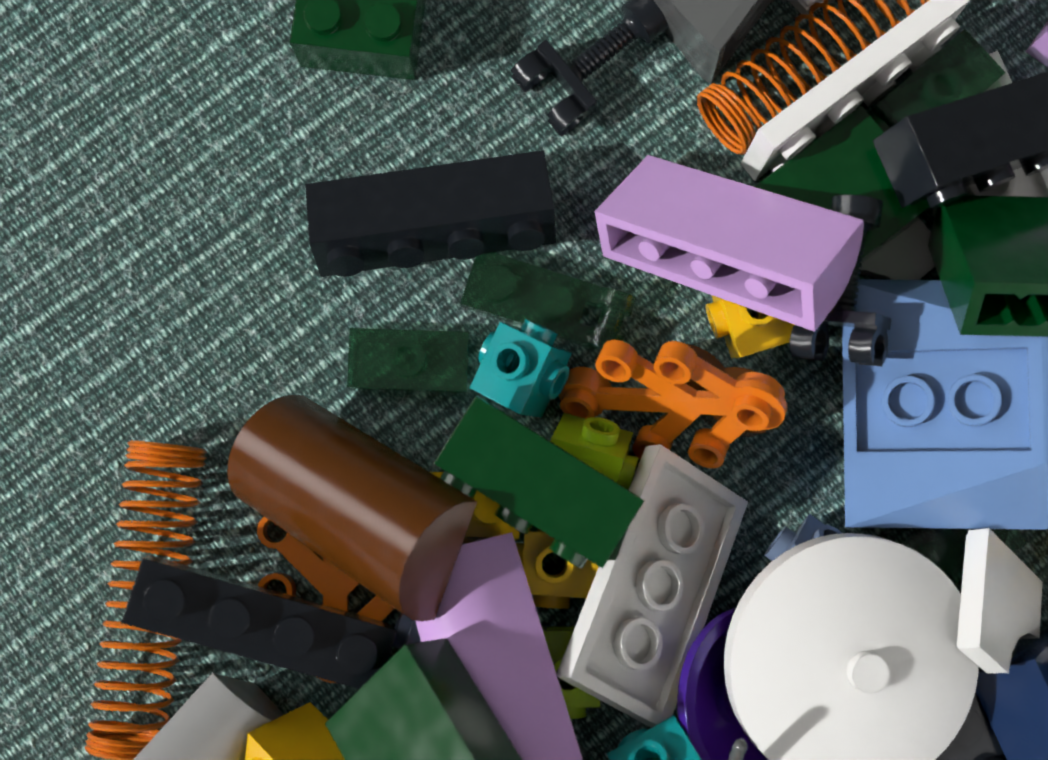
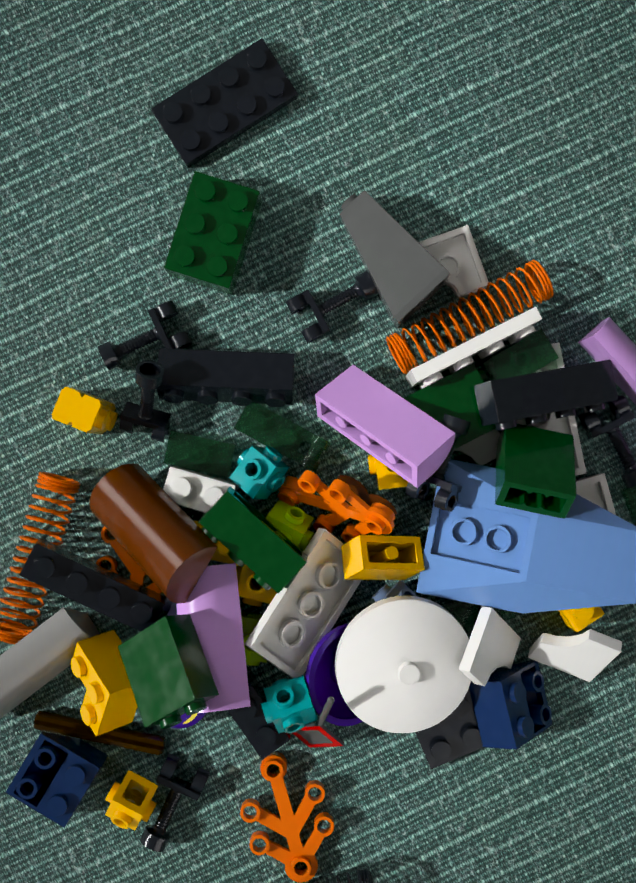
camera: 10 degrees right, 5 degrees up
(191, 315) = (84, 411): none -> yellow brick
(298, 227) = (149, 377): none -> black bar
(300, 128) = (113, 353): none -> black bar
(410, 419) = (194, 488): none -> white brick
(771, 476) = (382, 557): none -> yellow brick

